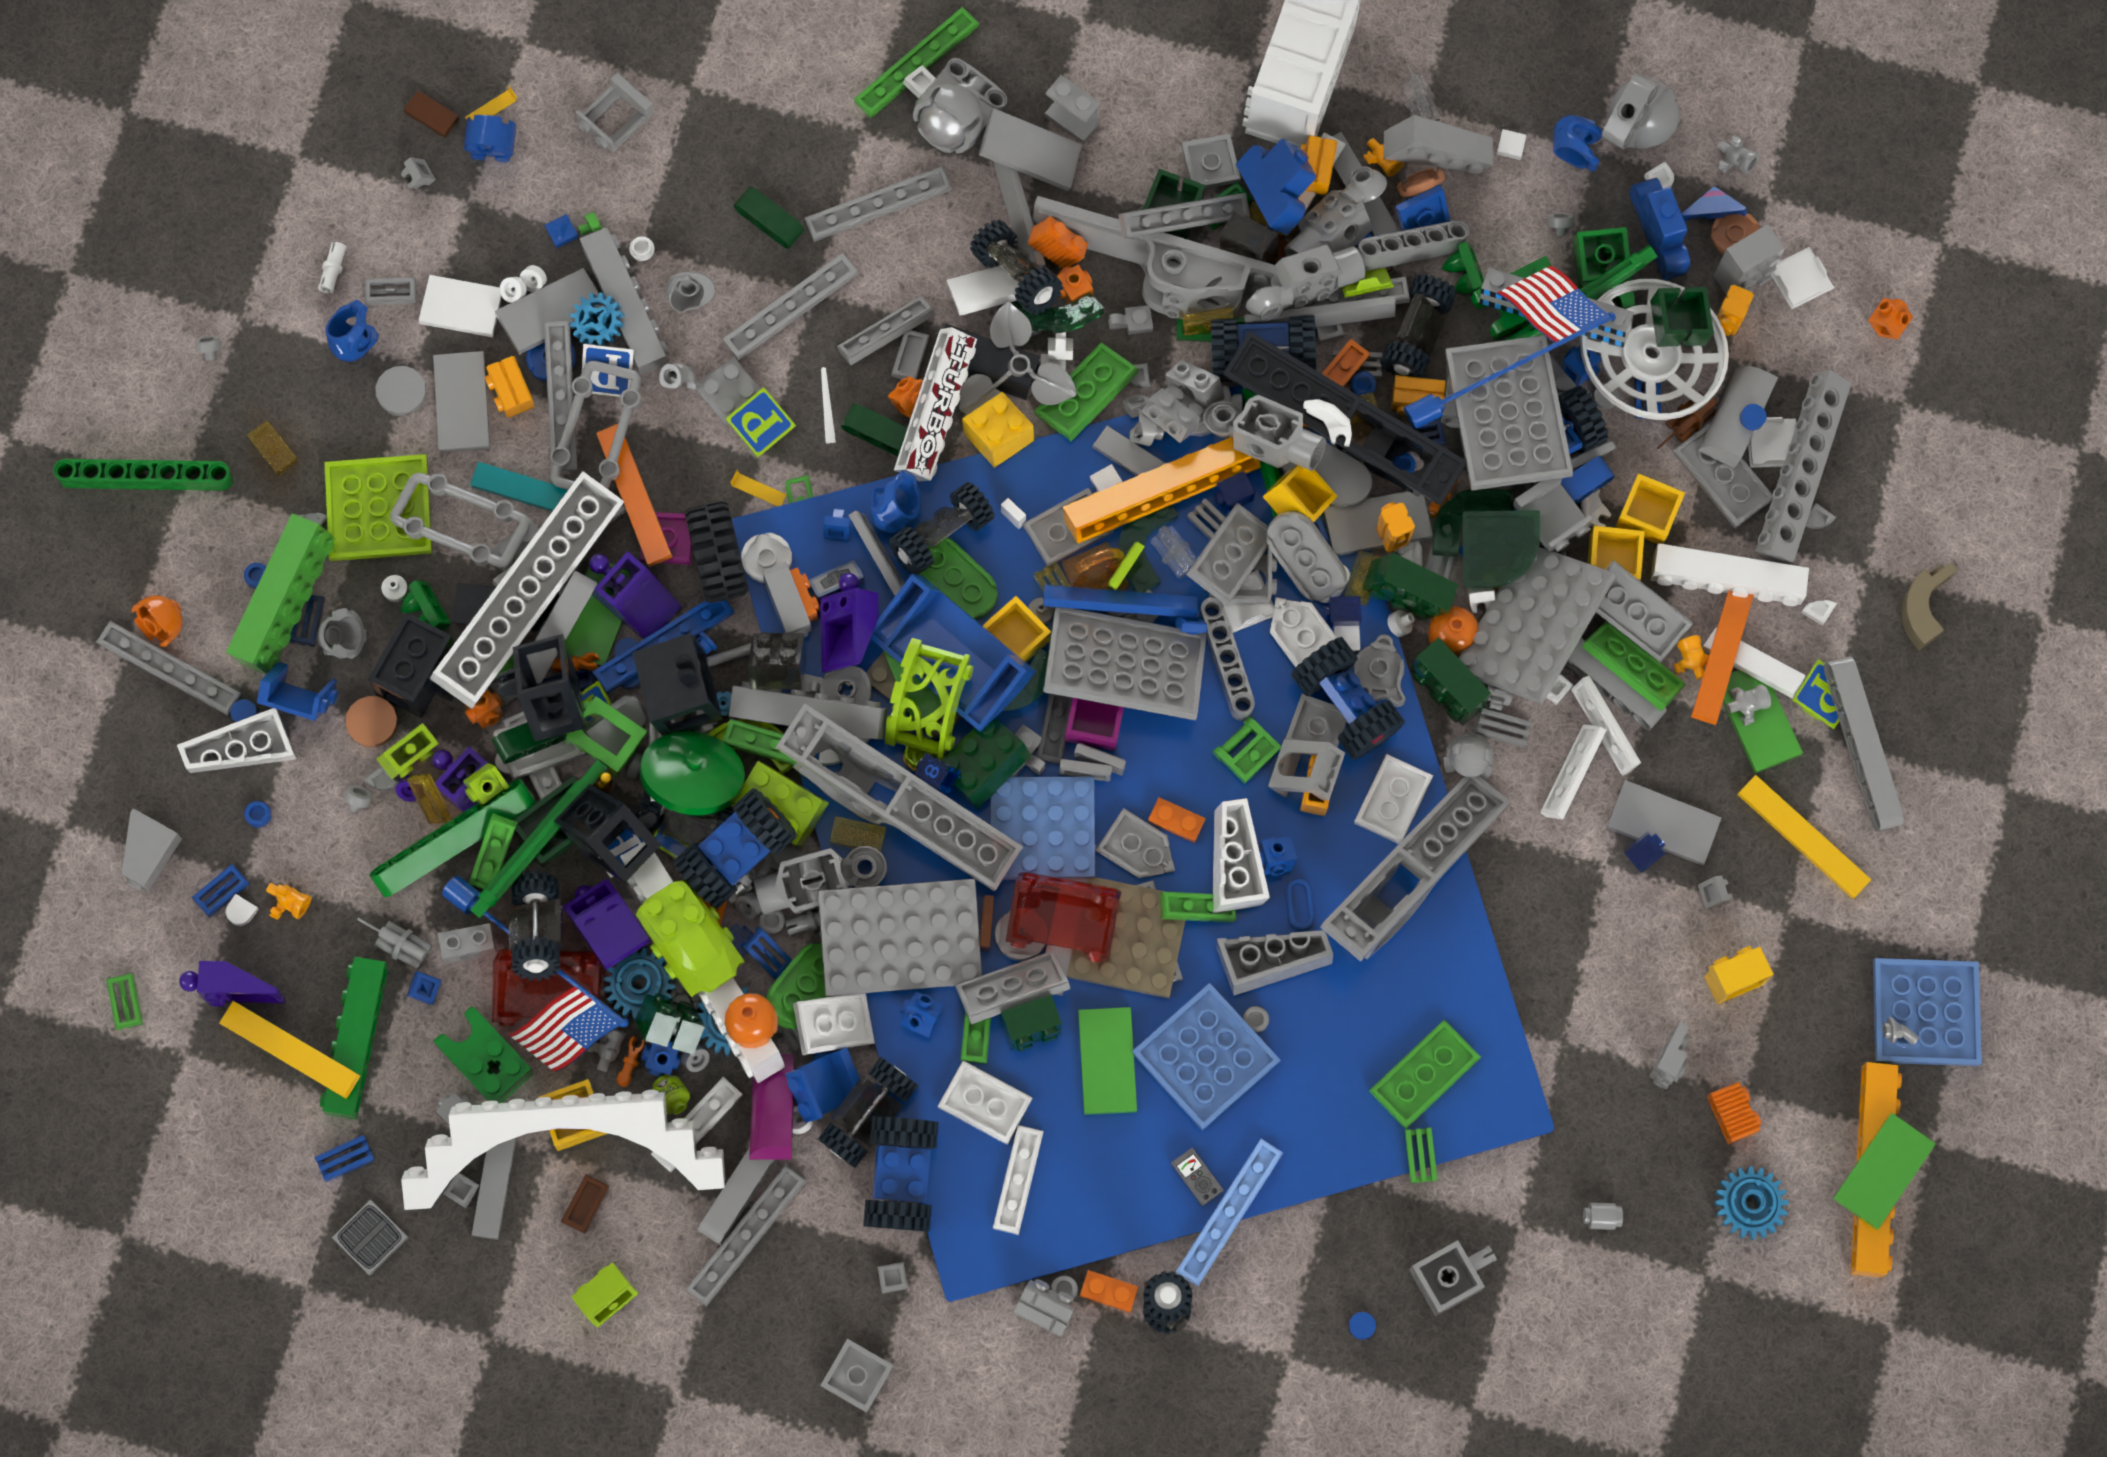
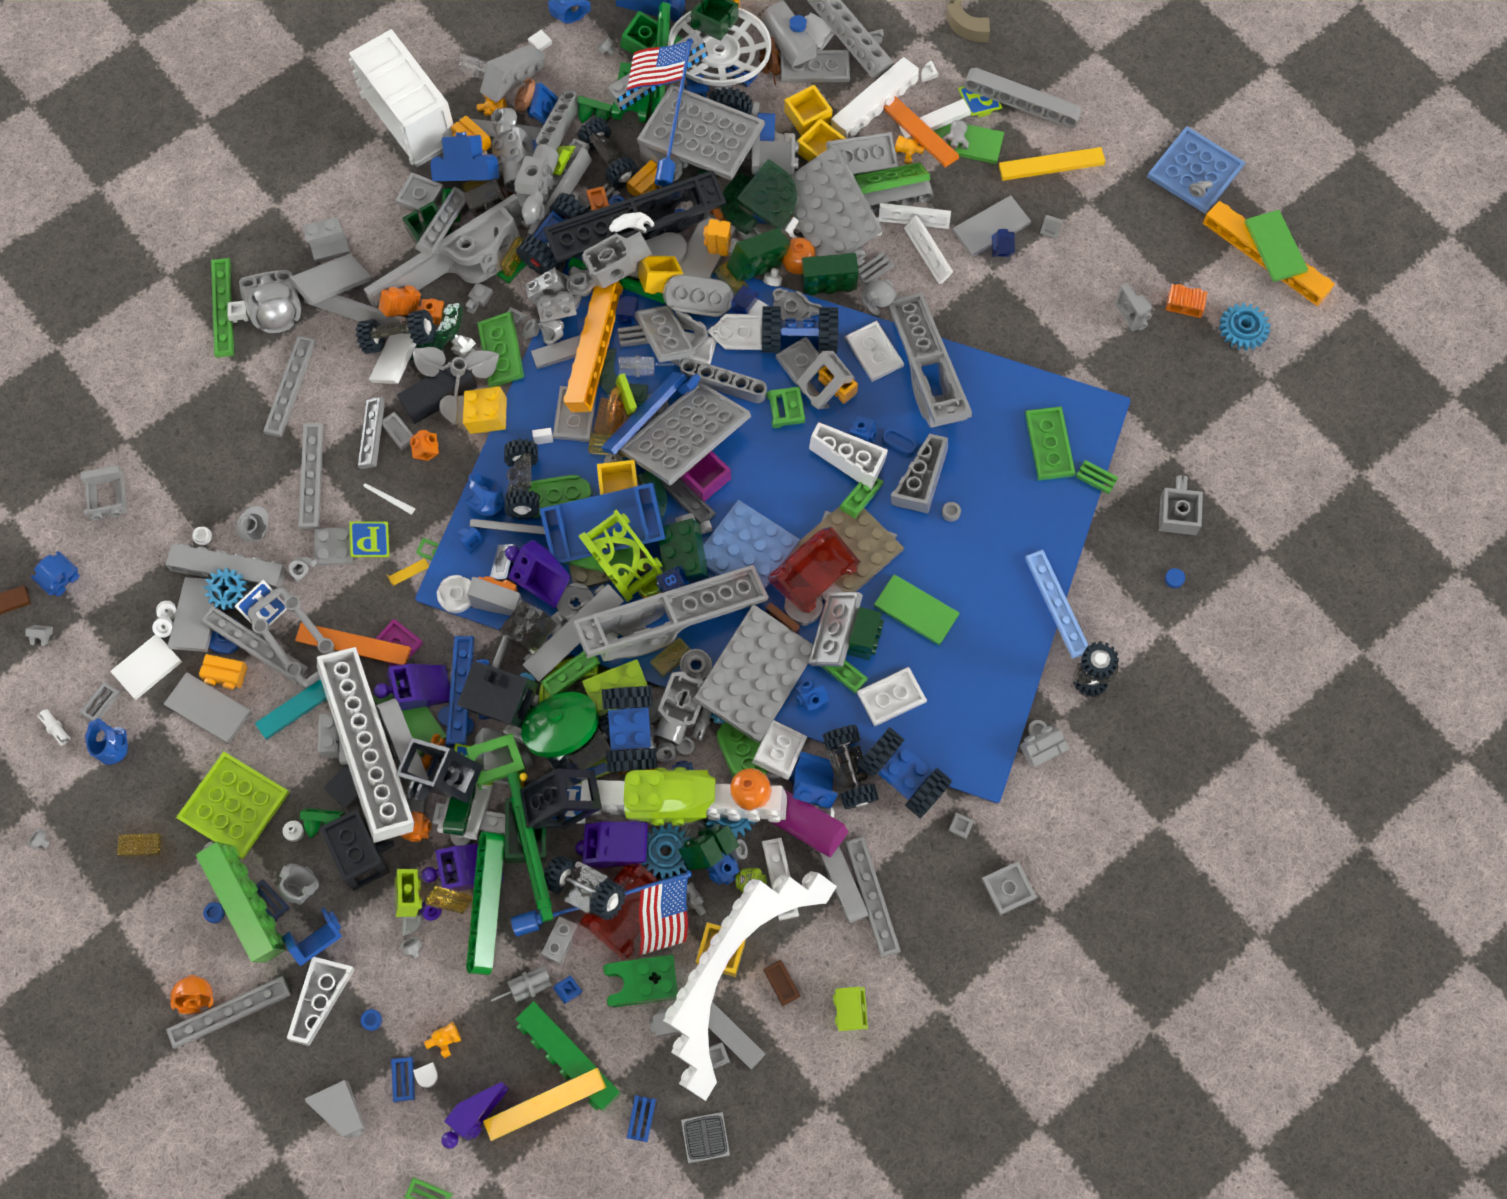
camera: 50 degrees left, 5 degrees down
(132, 469) = (77, 943): green beam -> none
(243, 709) = (295, 982): blue tile -> none
(371, 721) = (368, 904): nougat tile -> none
(401, 390) = (169, 740): light grey tile -> none
(475, 783) = (462, 853): lime brick -> none
(480, 552) = (251, 756): light grey bar -> none
(493, 850) = (514, 883): bright green tile -> none
(495, 105) = (37, 556): yellow piece -> none
(561, 231) = (150, 575): blue tile -> none
(591, 225) = (161, 553): bright green tile -> none
(624, 1077) = (711, 892): orange piece -> none
(716, 551) = (431, 614): black tyre -> none
(753, 940) = (692, 761): blue tile -> none
(769, 217) = (245, 450): dark green beam -> none
(874, 428) = (429, 478): dark green beam -> none
(936, 404) = (441, 430): white brick -> none
(1018, 1180) = (953, 710): white tile -> none
(1085, 769) = (727, 504): light grey tile -> none
(1092, 755) = (730, 489): light grey tile -> none
(1105, 478) = (562, 373): white tile -> none
(1109, 1291) = (1056, 705): orange plate -> none
(1137, 846) = (798, 505): light grey tile -> none
(1176, 820) = (798, 473): orange plate -> none
(1197, 1177) = (1023, 607): tile -> none
(1206, 1056) = (954, 552): medium blue plate -> none
(1603, 1216) = (1199, 406): light grey brick -> none
(1738, 975) = (1109, 243): yellow piece -> none

